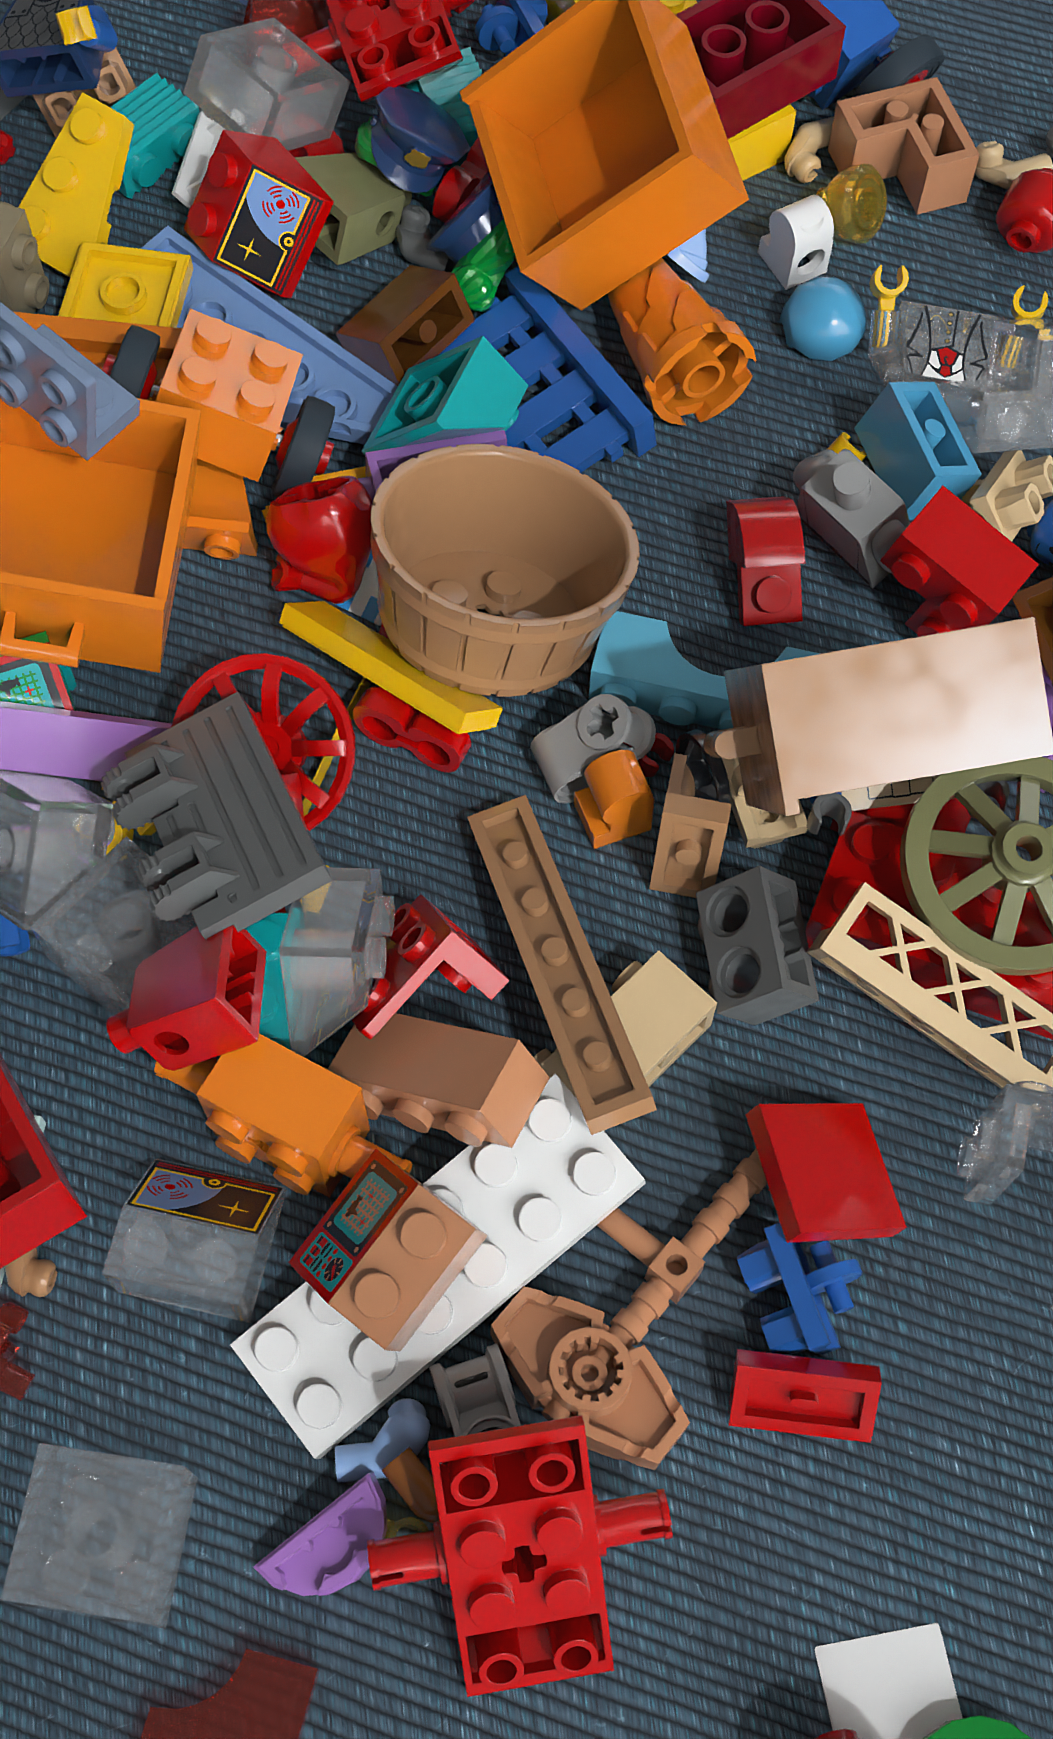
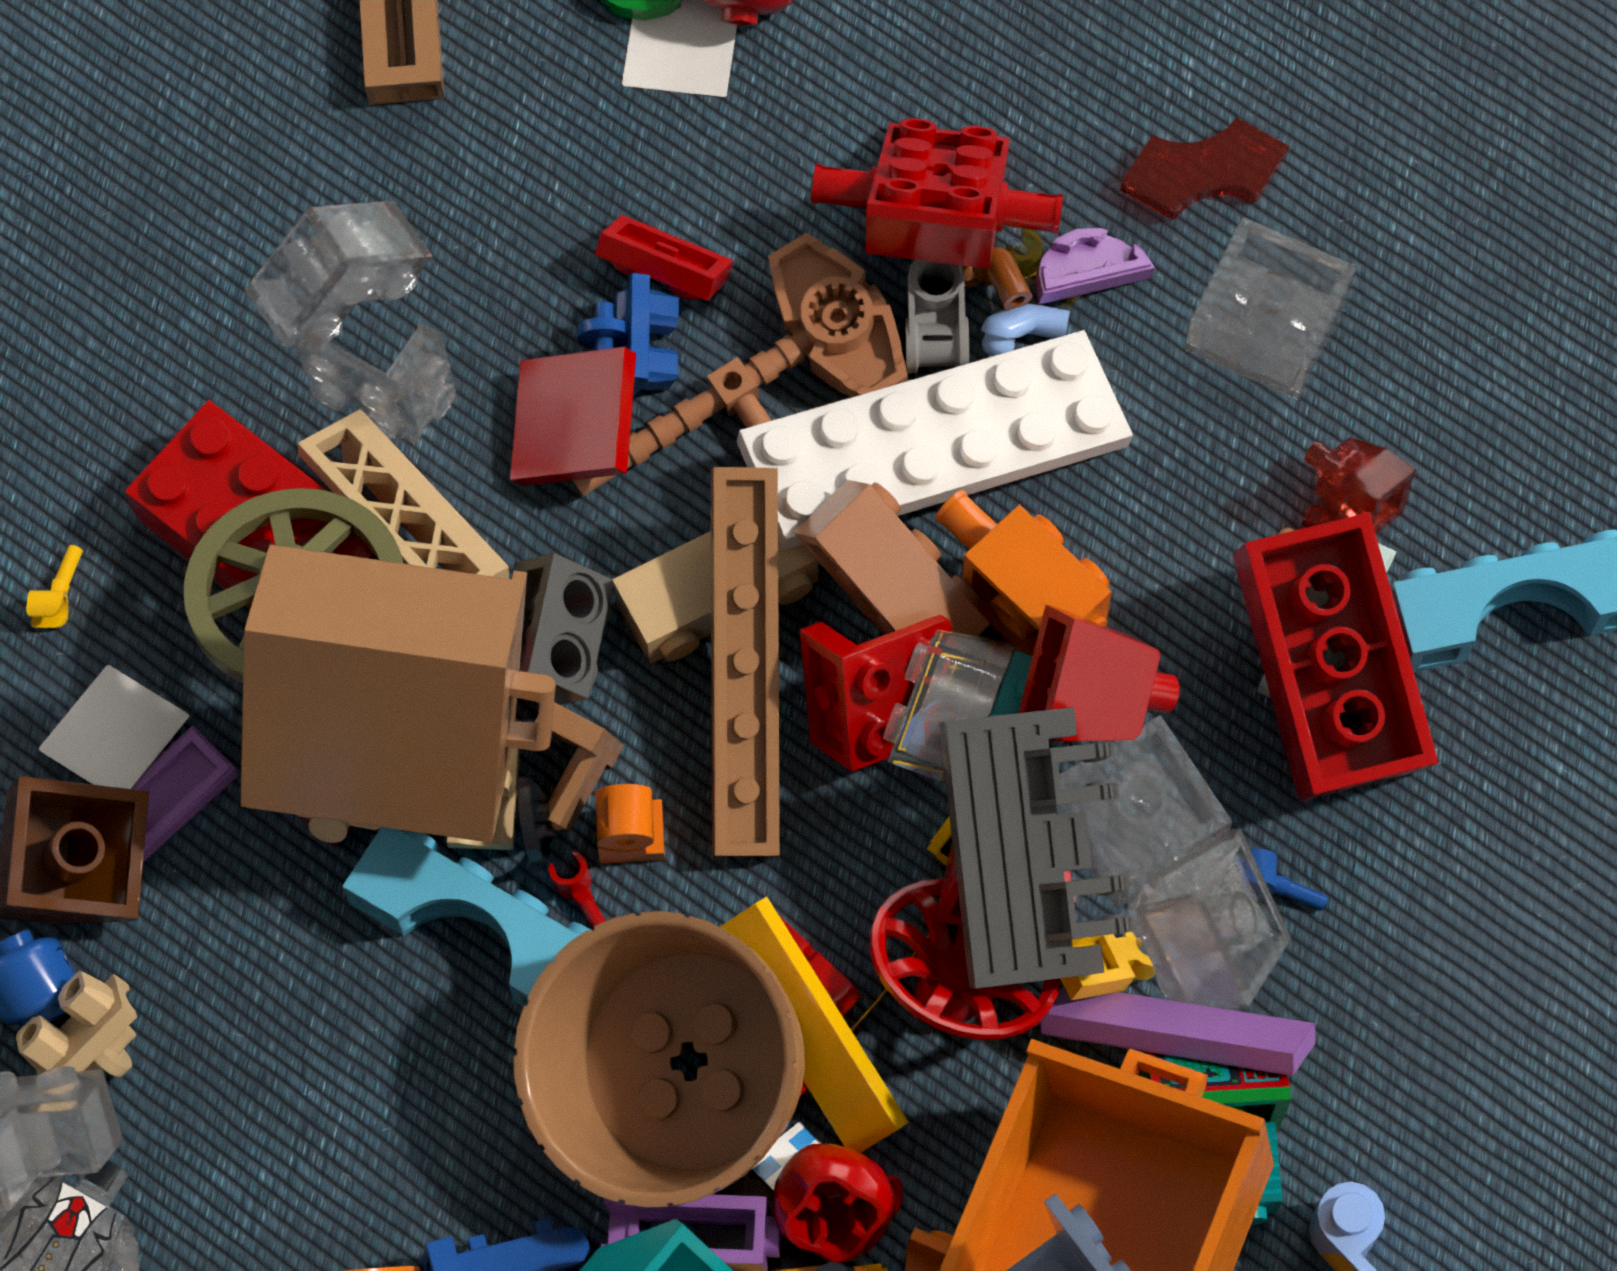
camera: 160 degrees left, 5 degrees up
(195, 1239) = (1144, 528): clear slope -> none
(386, 1252) = (980, 428): nougat slope -> none
(584, 736) = (629, 881): light grey piece -> none
(768, 552) = (366, 1053): red brick -> none
(850, 508) = (256, 1064): light grey torso -> none
(916, 444) = (154, 1118): dark azure brick -> none
(957, 566) = (196, 923): red brick -> none

